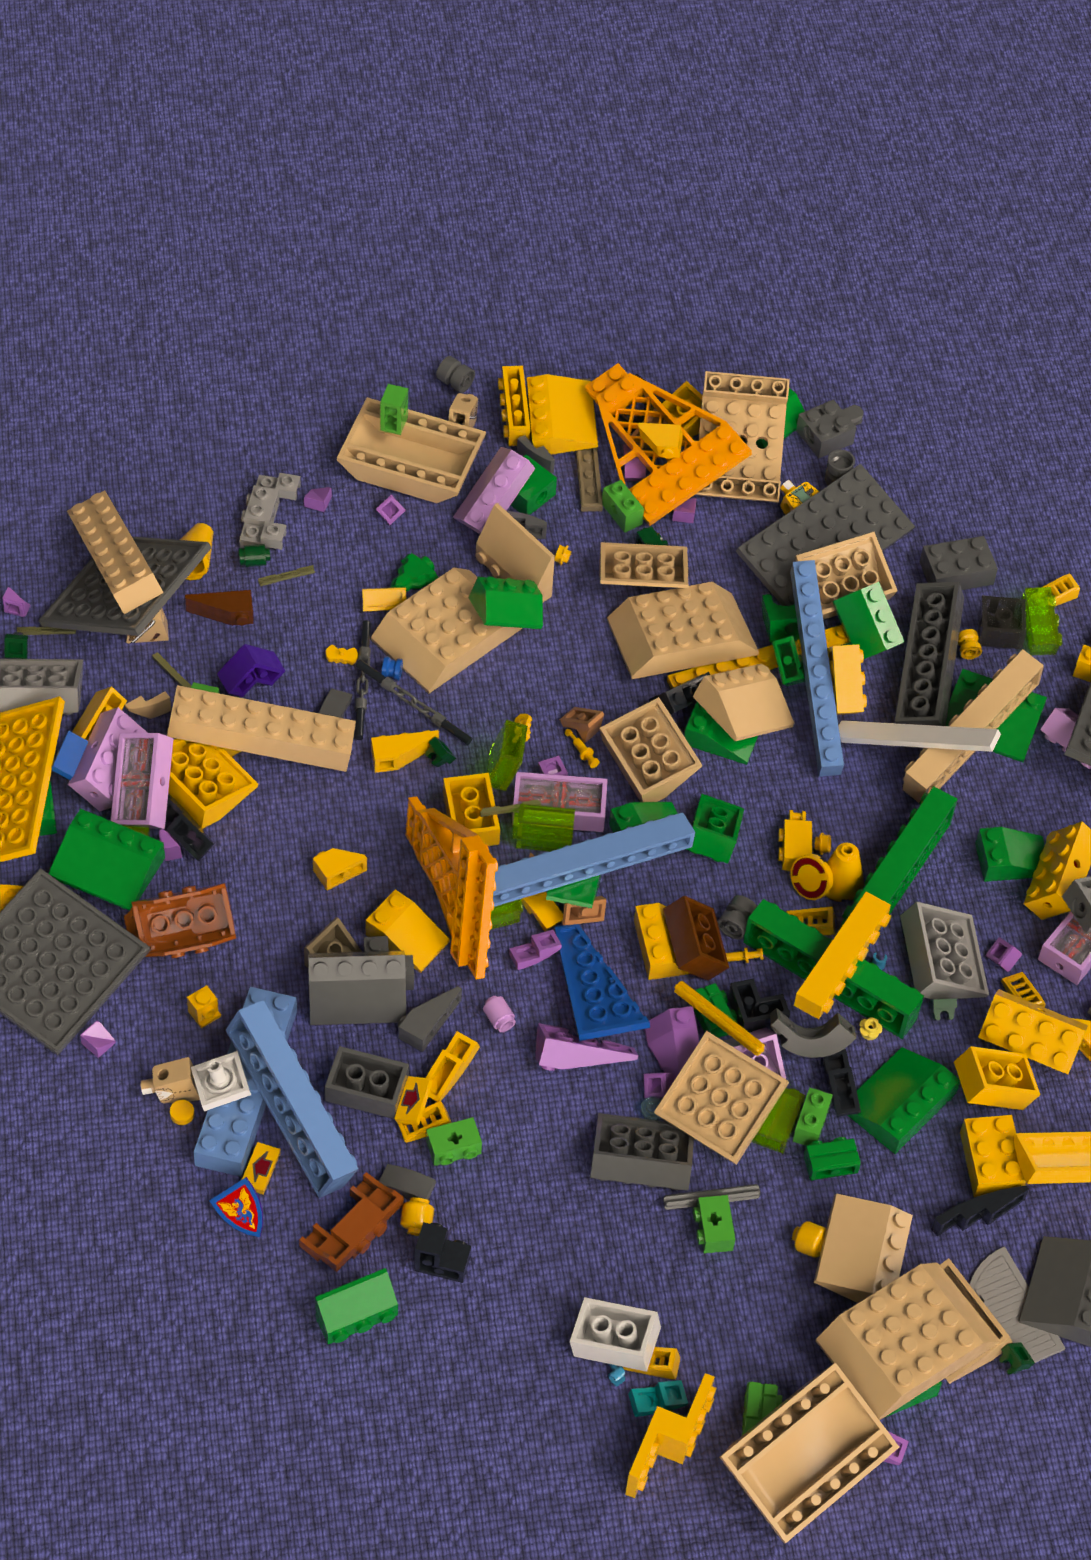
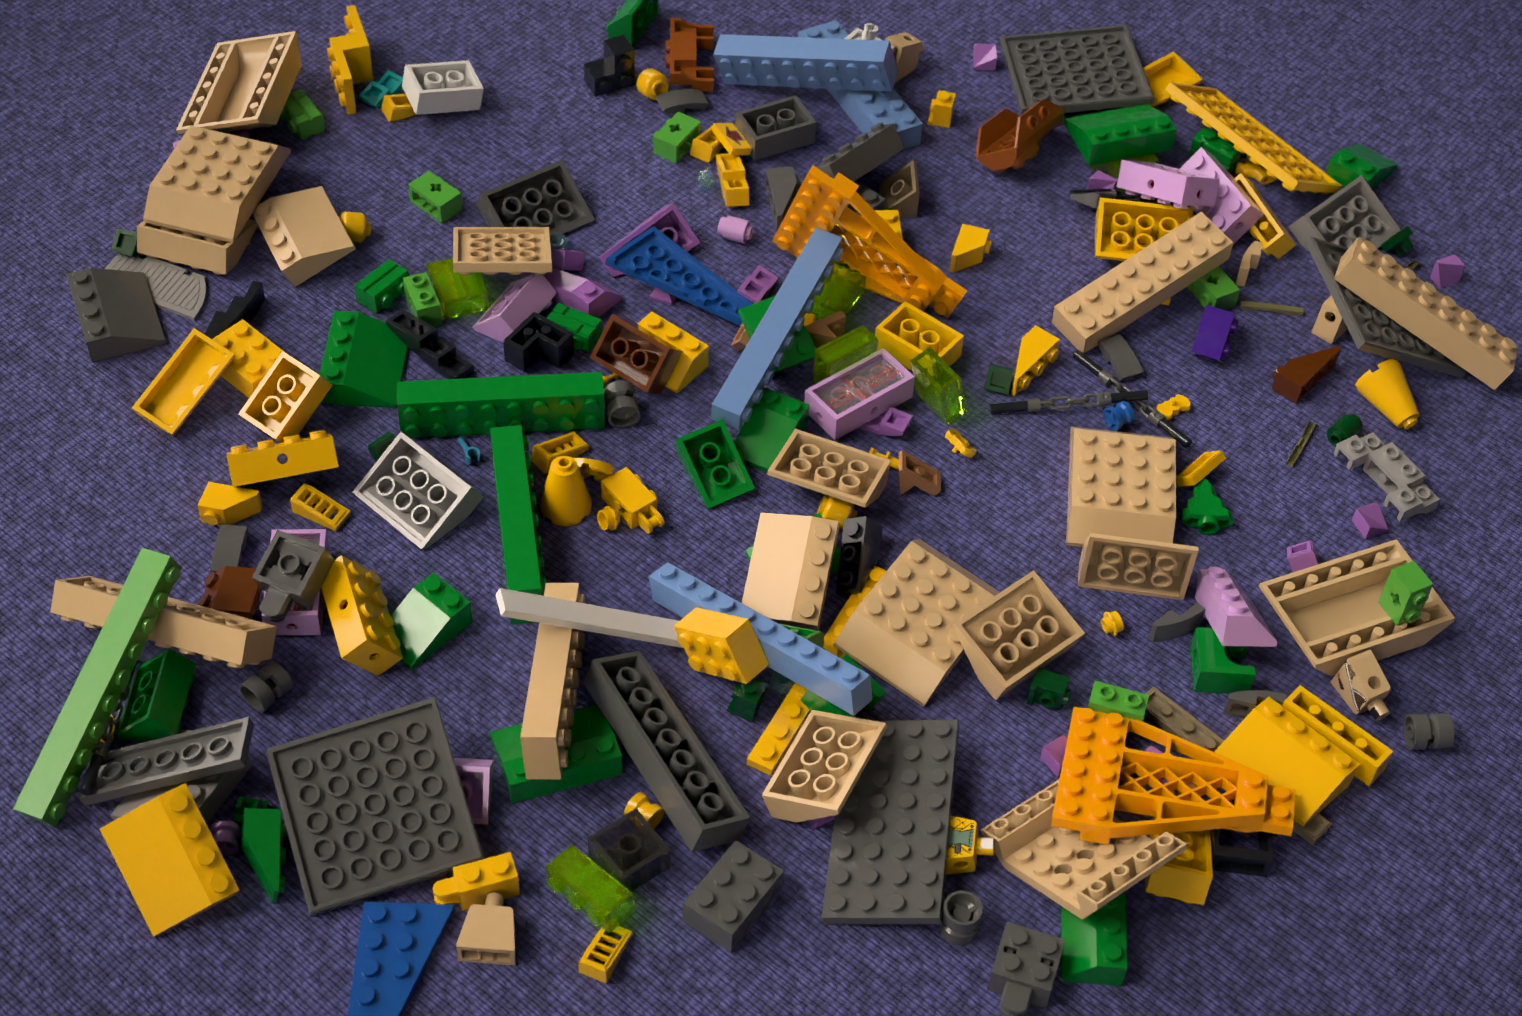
camera: 140 degrees right, 5 degrees down
(69, 755) = (1238, 164): blue tile -> none
(240, 1208) = (774, 21): shield -> none
(471, 1083) = (705, 179): none -> clear light blue plate
(506, 809) = (891, 336): olive piece -> none
(508, 602) = (1084, 498): green slope -> none
(662, 438) = (1148, 762): yellow slope -> none
(690, 1199) = (450, 220): dark grey axle -> none
(719, 1018) = (555, 299): yellow axle -> none
(813, 1042) = (474, 339): dark grey arch -> none
(842, 956) = (491, 380): yellow brick -> none
(868, 620) = (757, 744): green slope -> none
(1003, 954) = (364, 530): medium lavender slope -> none

